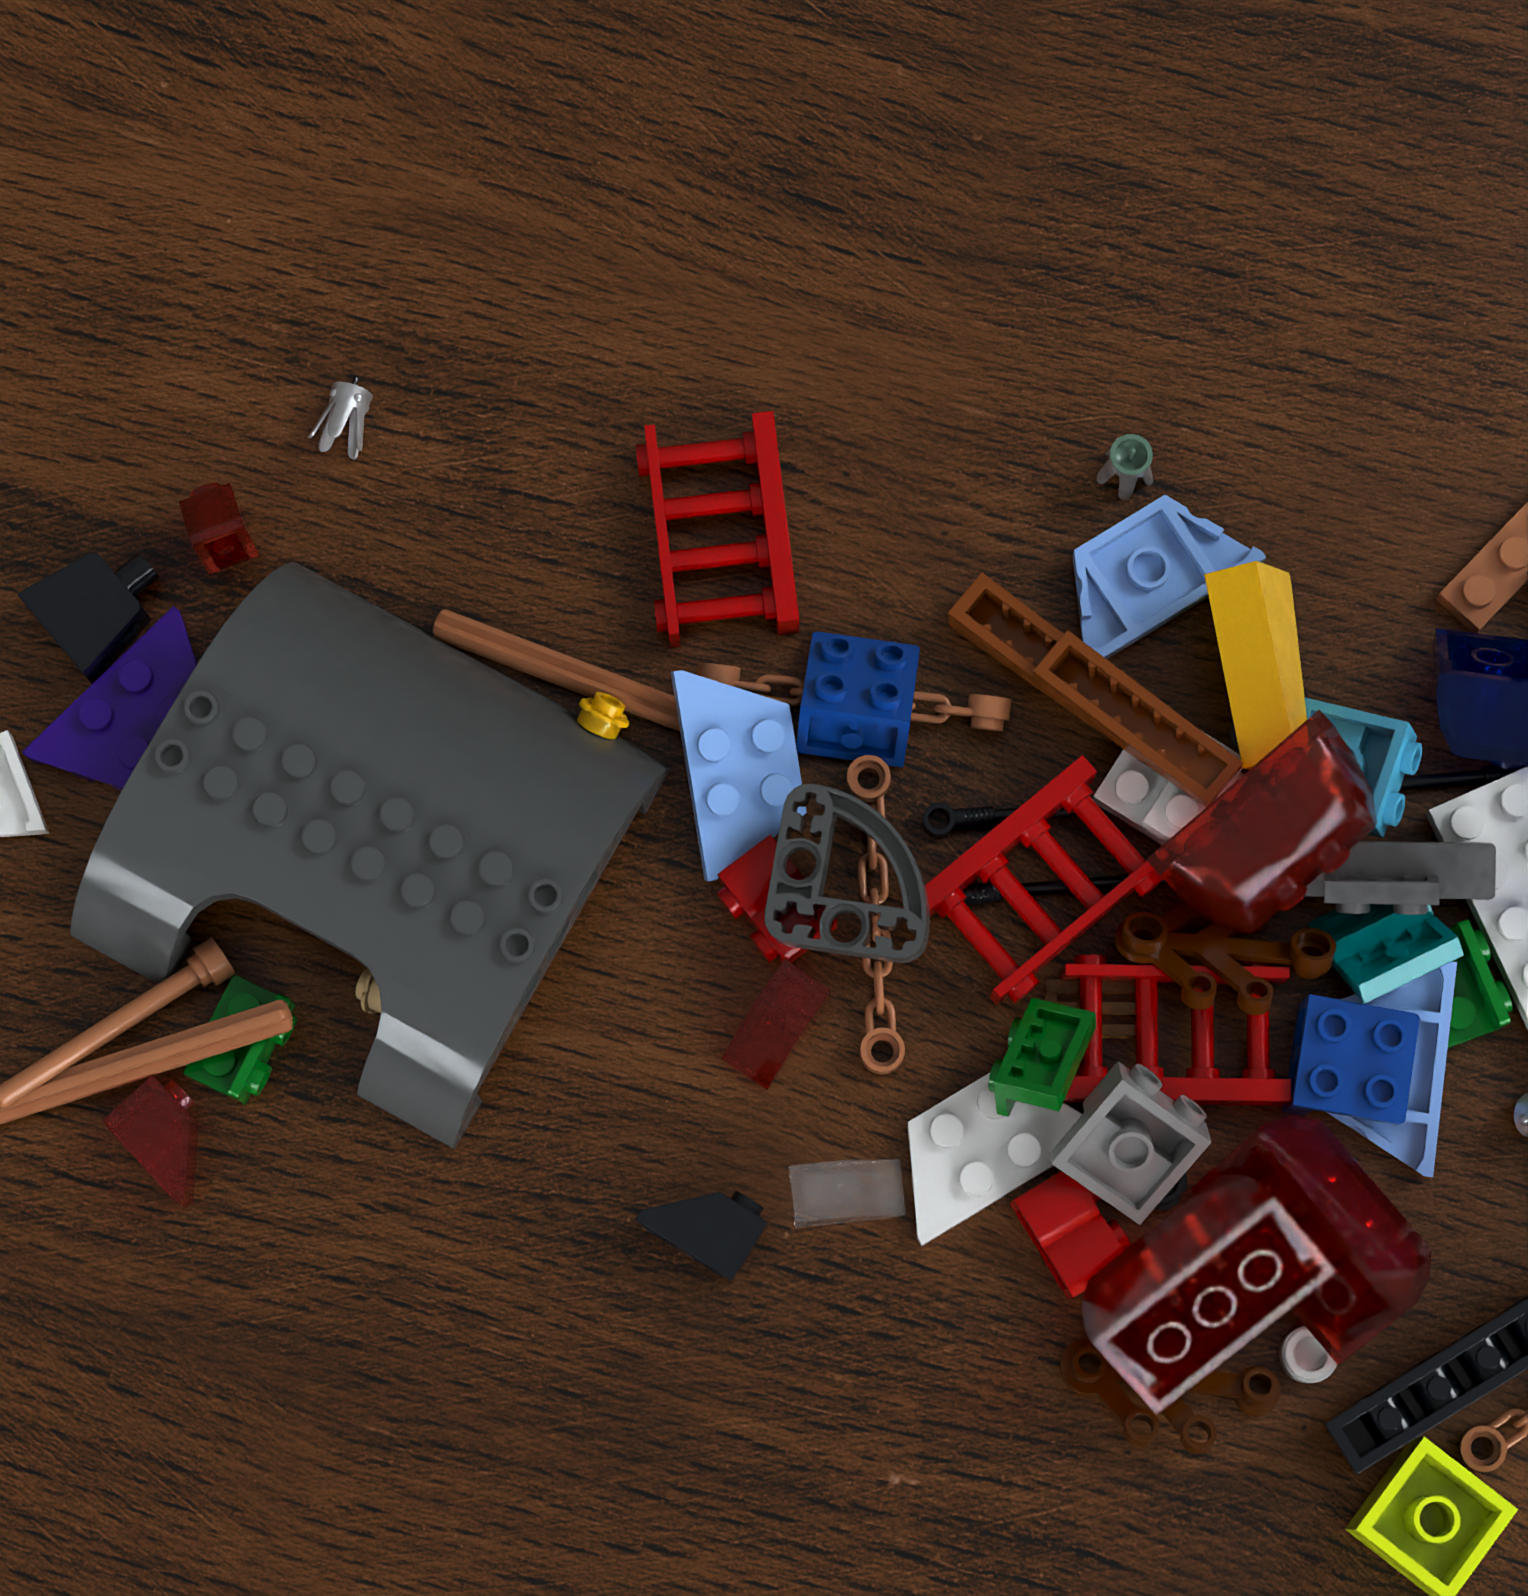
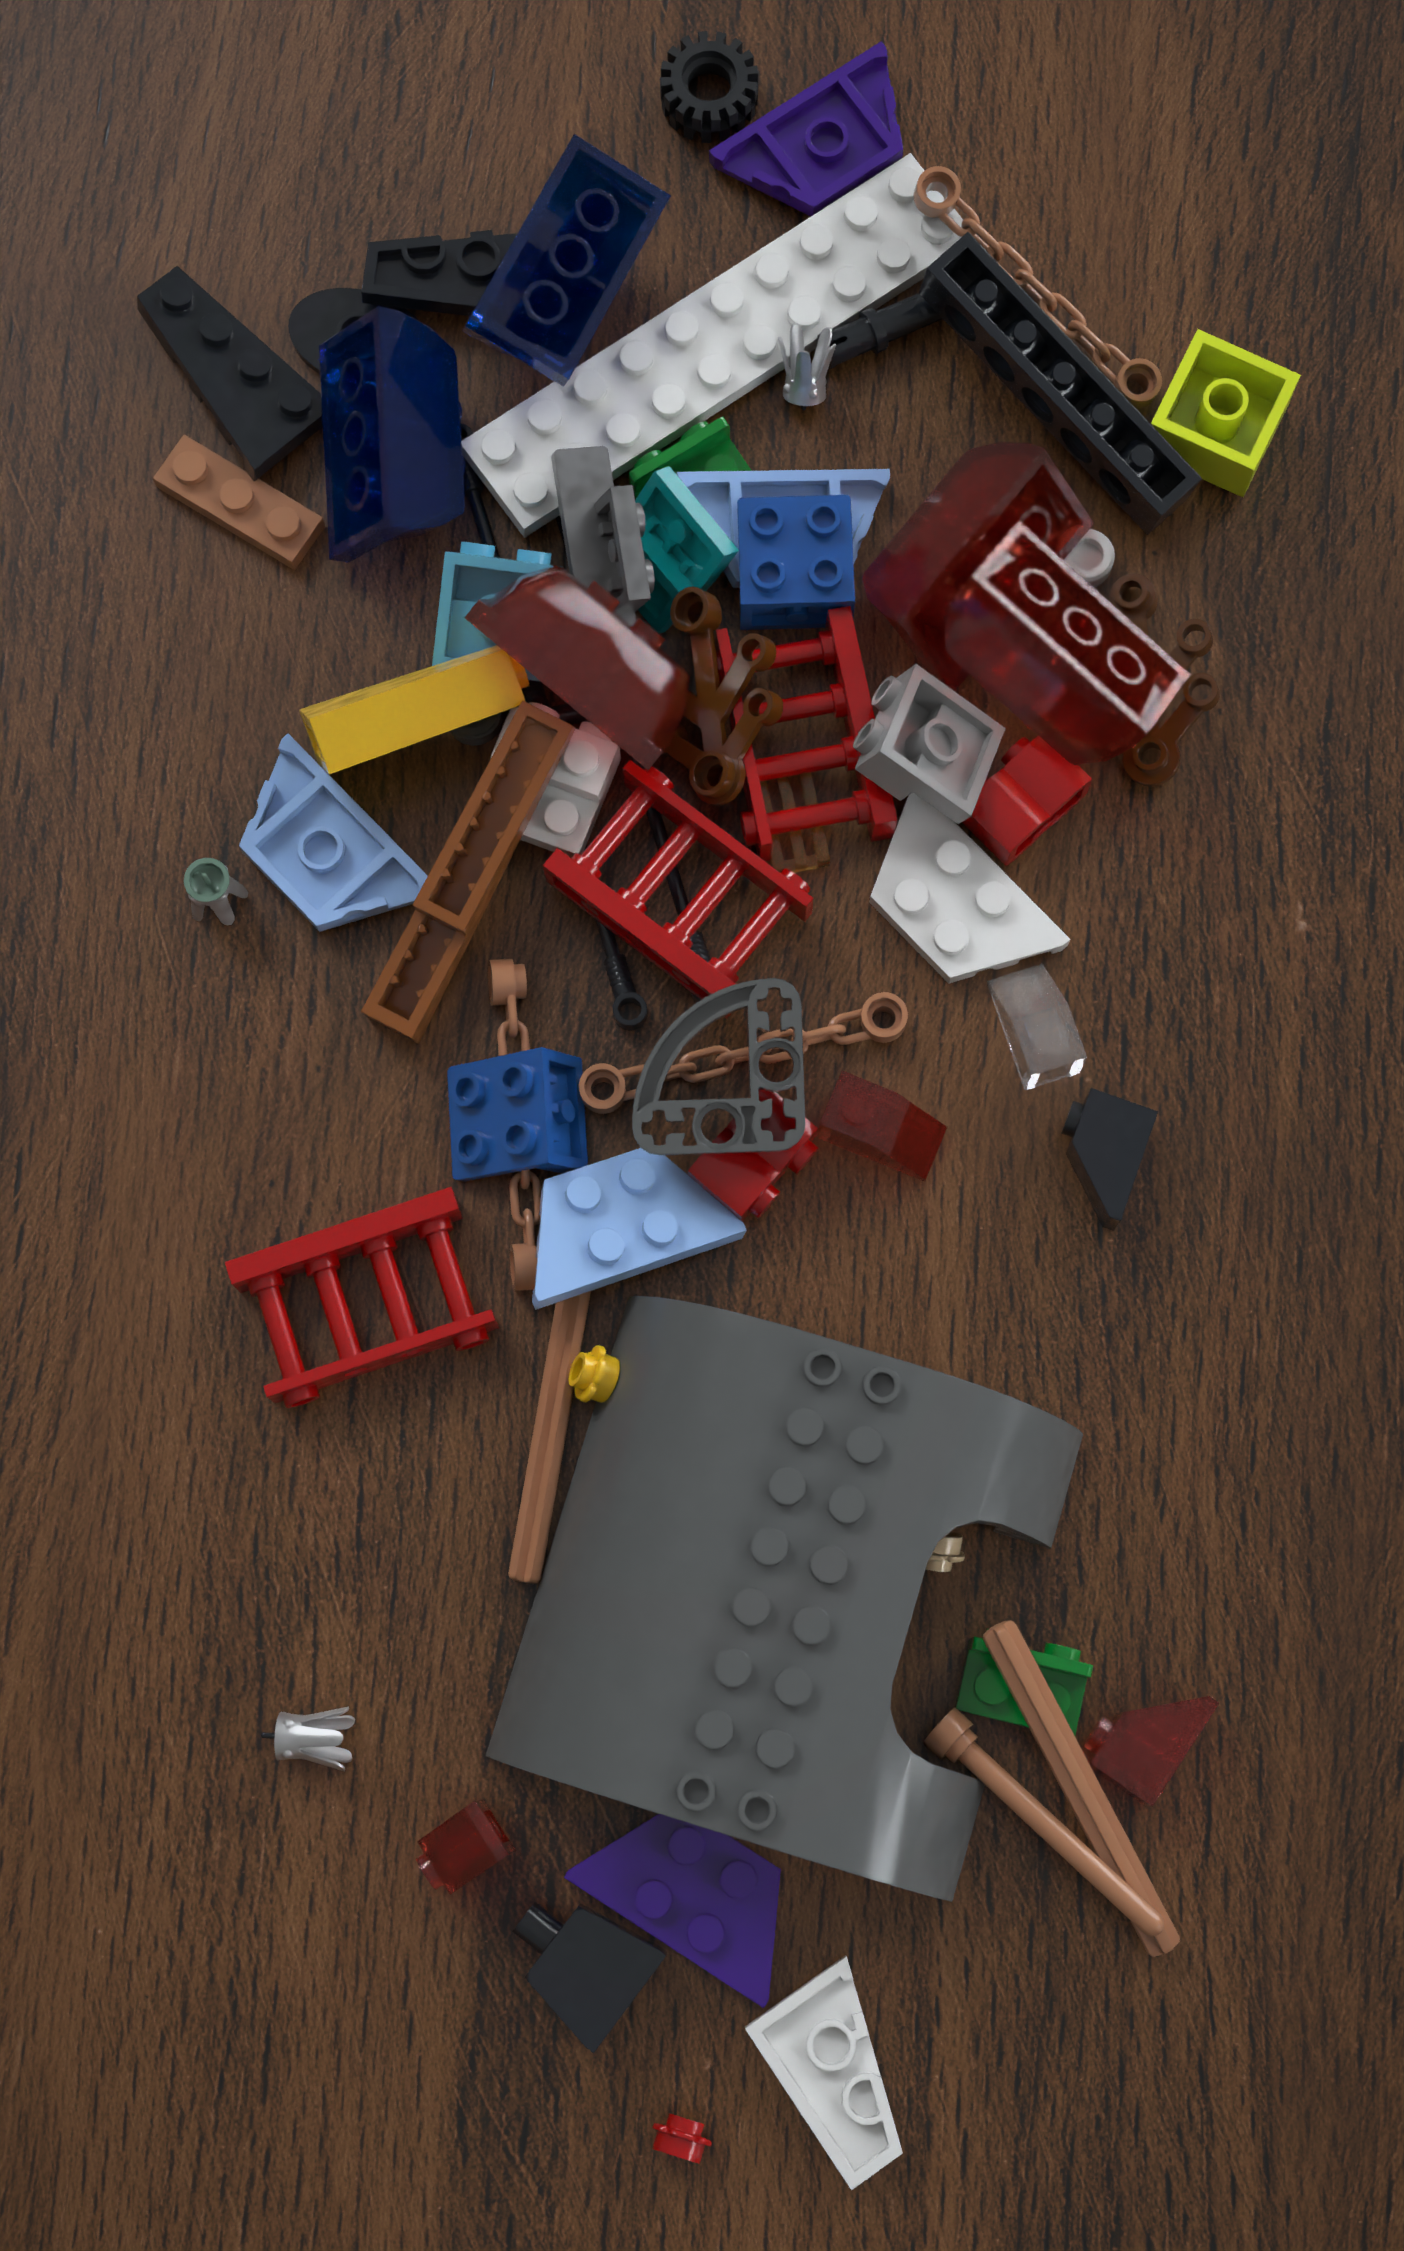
camera: 100 degrees left, 0 degrees up
(1041, 1056) = (861, 846): green bracket -> none

